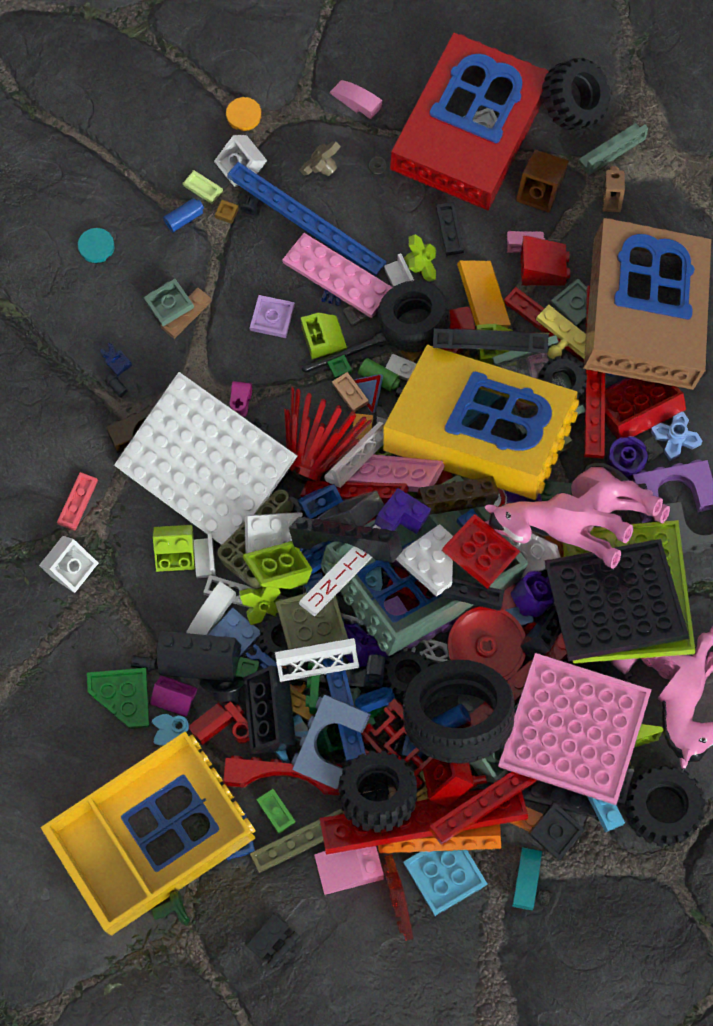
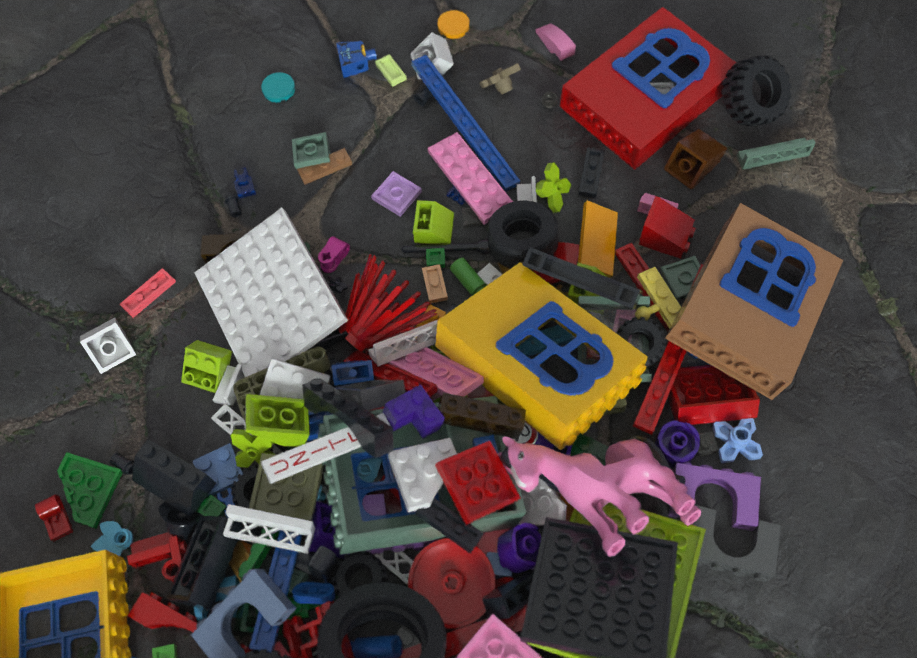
camera: 25 degrees right, 5 degrees down
(108, 731) = (55, 517): none -> red plate
(160, 186) = (354, 57): none -> blue torso
(173, 695) = (132, 506): magenta panel -> none
(183, 214) = (362, 85): blue brick -> none
(212, 610) = (207, 439): white slope -> none
(226, 211) = (400, 95): pearl gold plate -> none
(371, 388) = (454, 285): medium blue piece -> none
(613, 182) = (764, 181): medium nougat torso -> none

